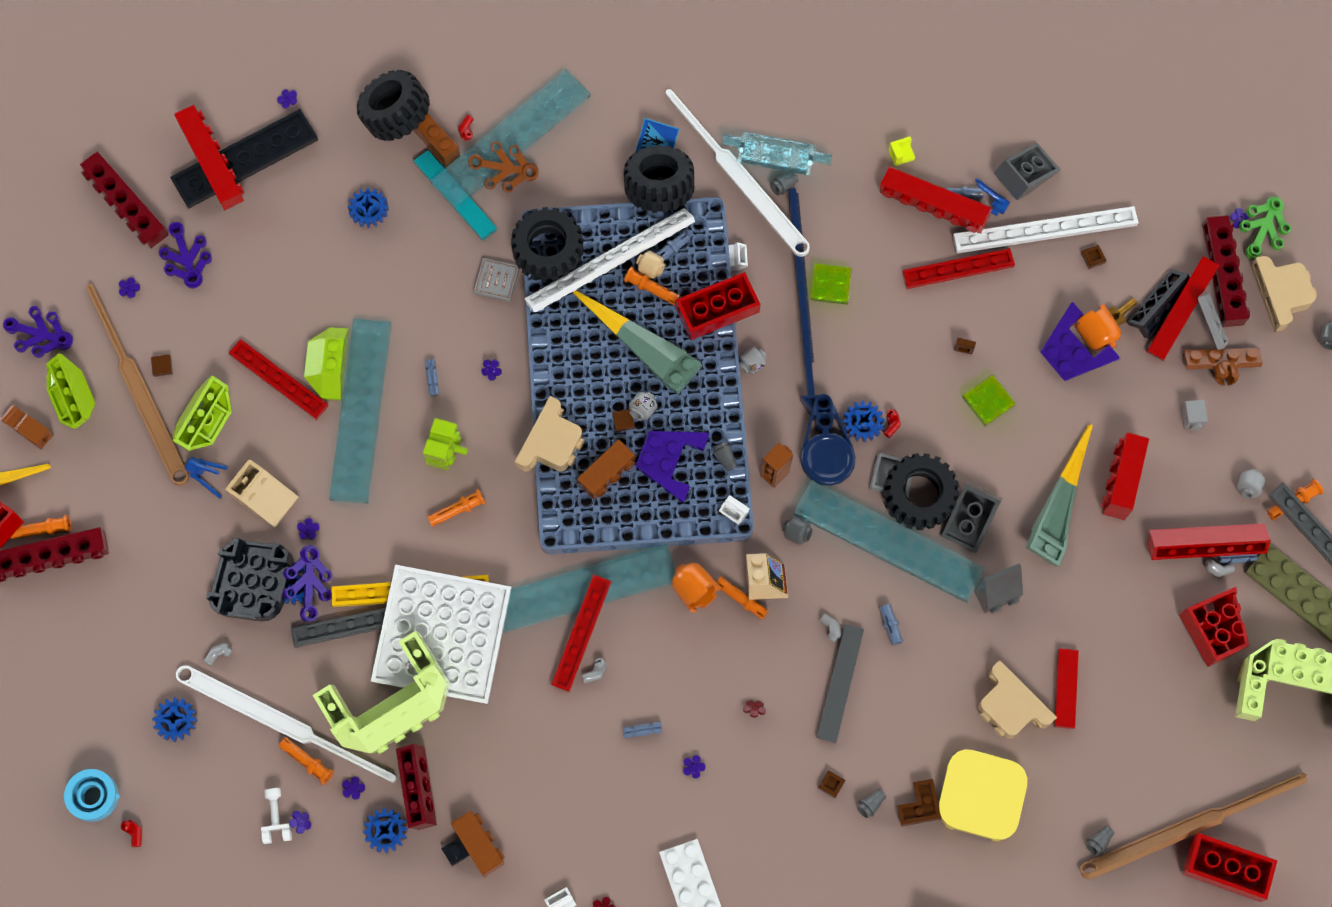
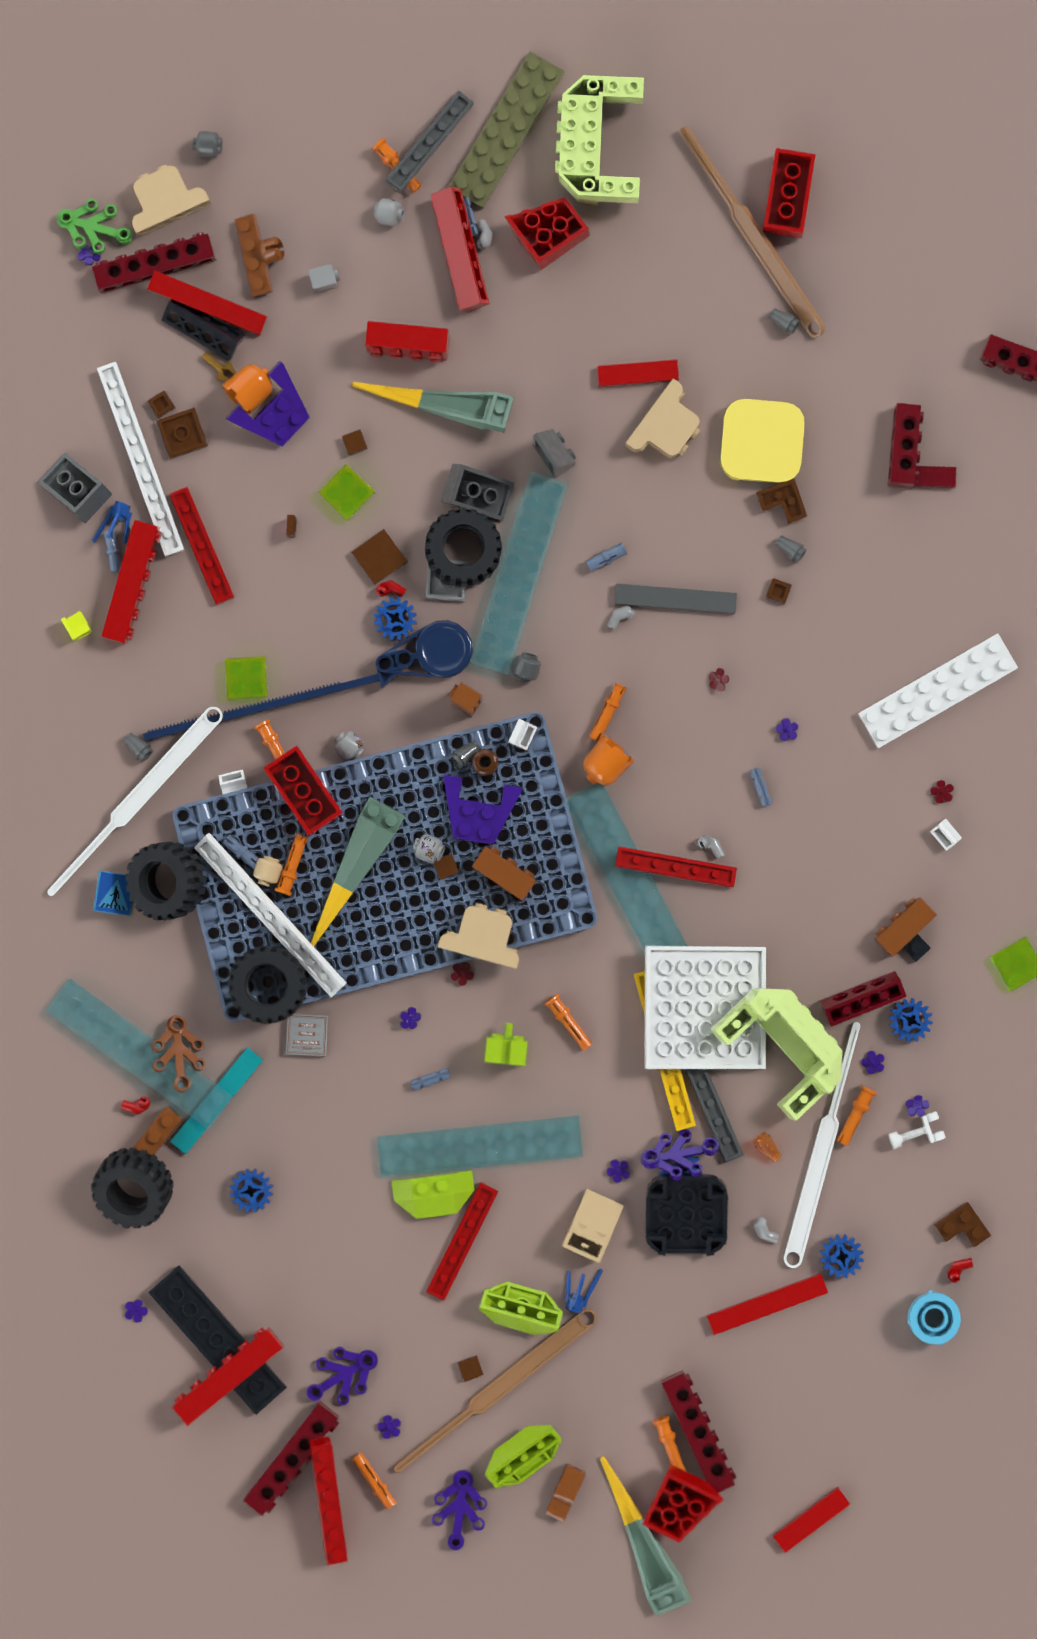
camera: 95 degrees left, 15 degrees up
(63, 273) = (379, 1488): none -> orange pin
(76, 219) = (328, 1500): none -> red brick
(148, 643) = (767, 1304): none -> red tile
(179, 846) = (963, 1220): none -> reddish brown plate
(298, 668) = (767, 1146): none -> clear orange cone
(522, 423) = (461, 973): none -> dark red plant
(713, 470) = (478, 760): none -> reddish brown head
(765, 577) = (584, 690): tan slope -> none
(773, 293) = (270, 738): none -> orange pin
(776, 152) = (105, 761): clear light blue plate -> none
(923, 419) = (379, 557): none -> reddish brown tile
(1035, 416) = (354, 442): none -> reddish brown tile
(1064, 270) = (182, 433): none -> reddish brown tile
(1213, 320) = (217, 270): light grey tile -> none

